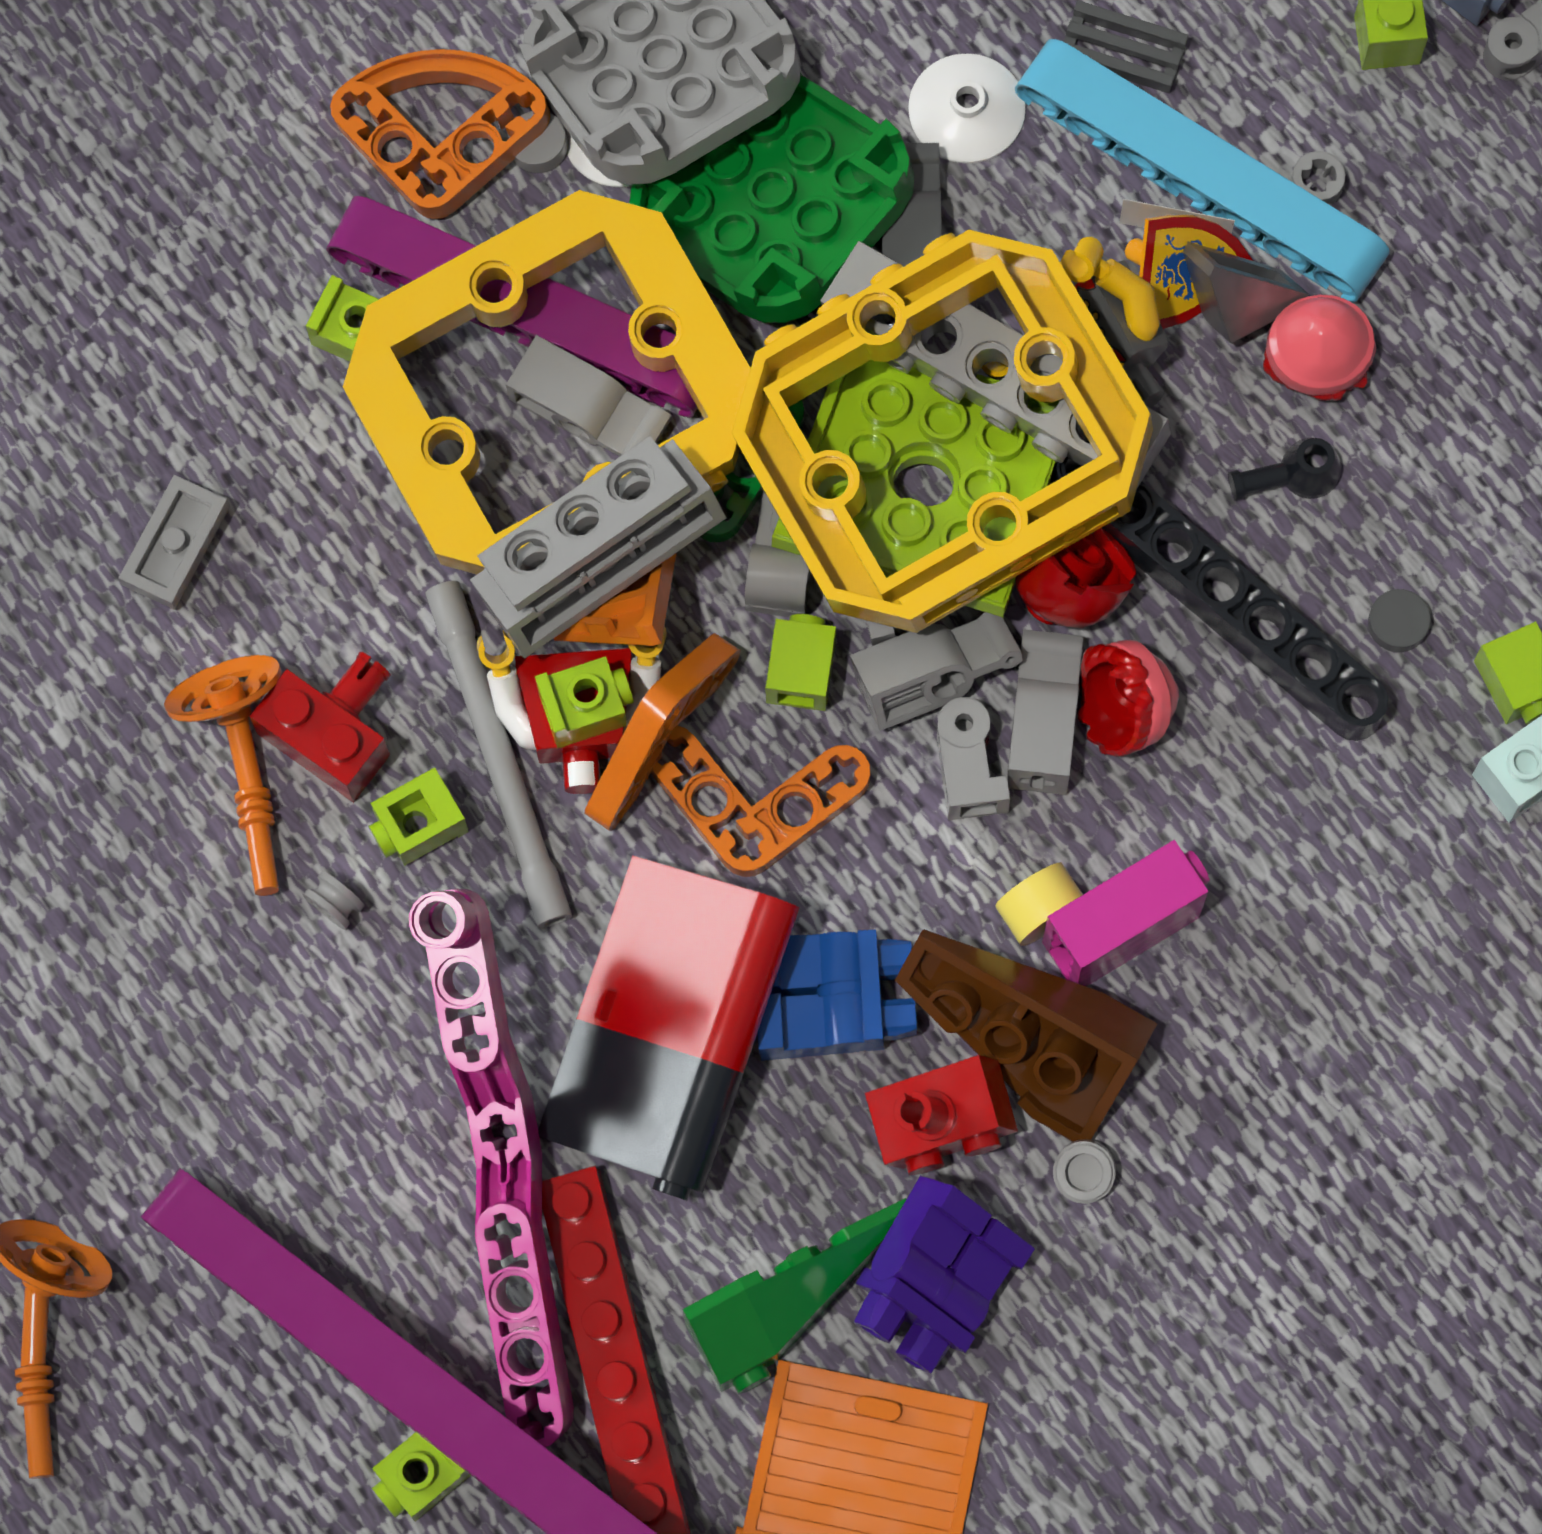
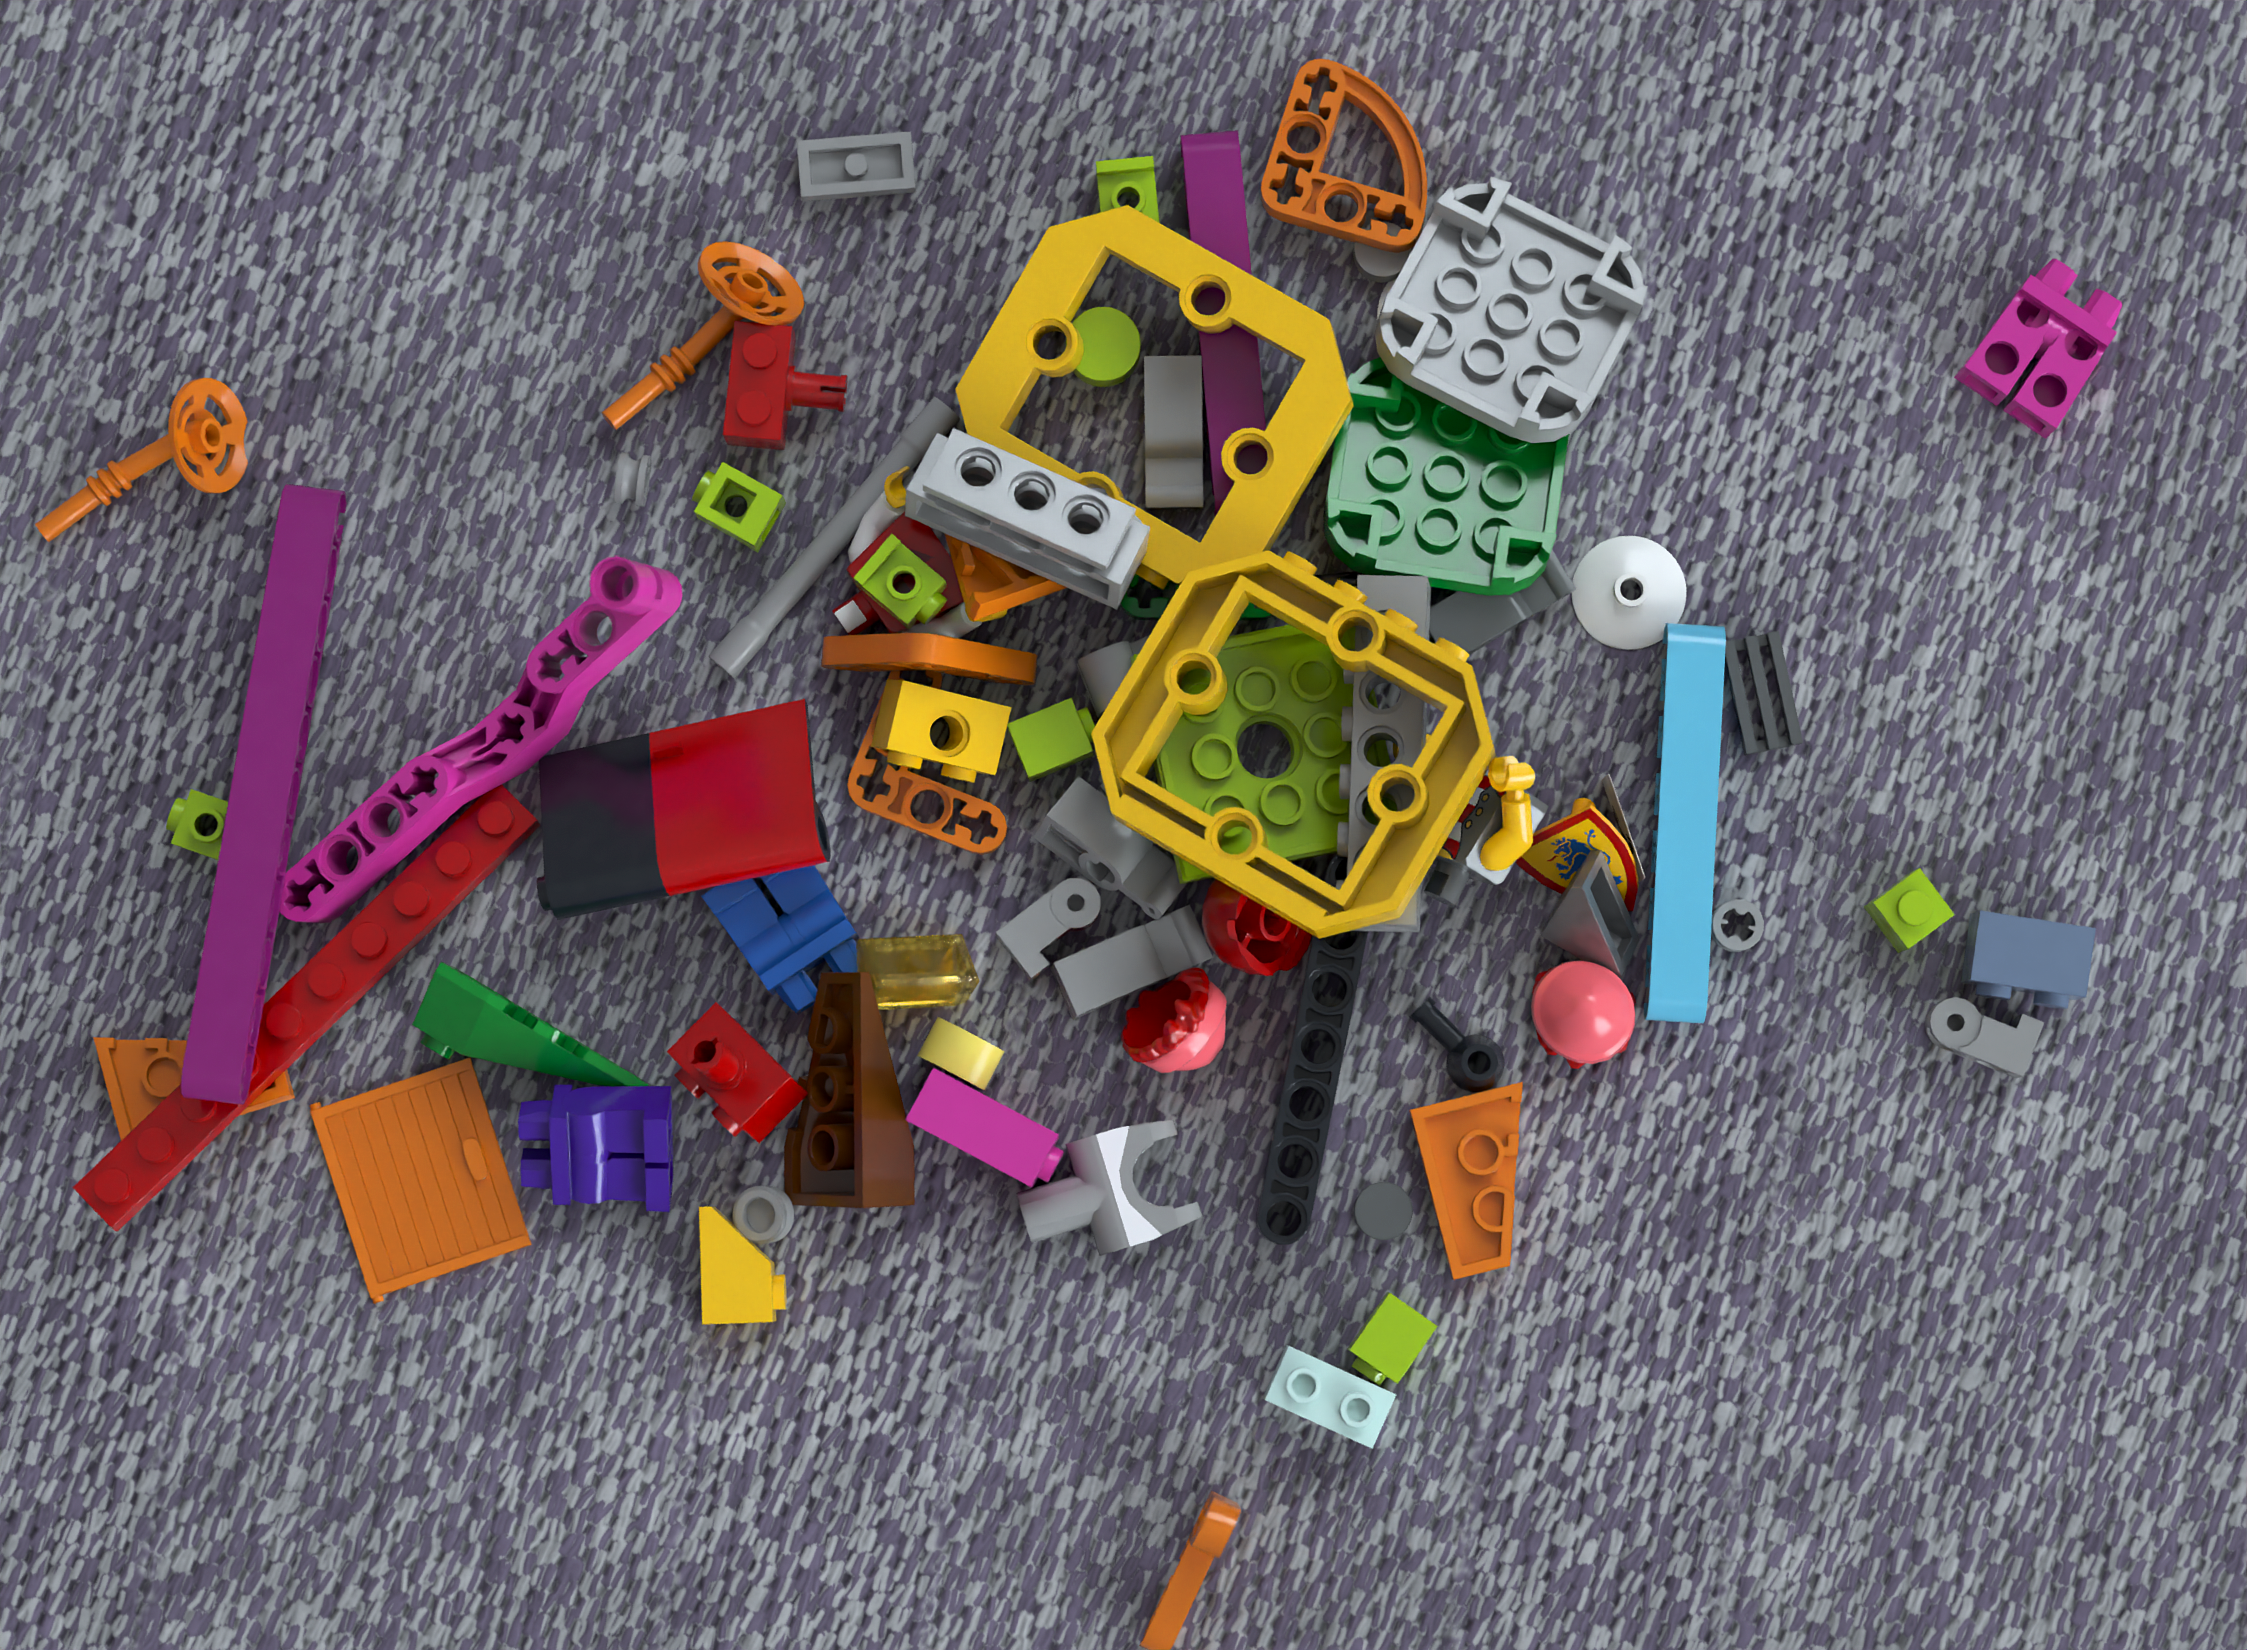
camera: 55 degrees right, 10 degrees up
(483, 411) = (1109, 346): none -> lime piece
(746, 720) = (974, 726): none -> yellow brick
(942, 896) = (918, 970): none -> clear yellow slope
(1126, 1225) = (735, 1275): none -> yellow slope
(1245, 850) = (1104, 1193): none -> light grey connector
(1407, 525) = (1470, 1174): none -> orange wing

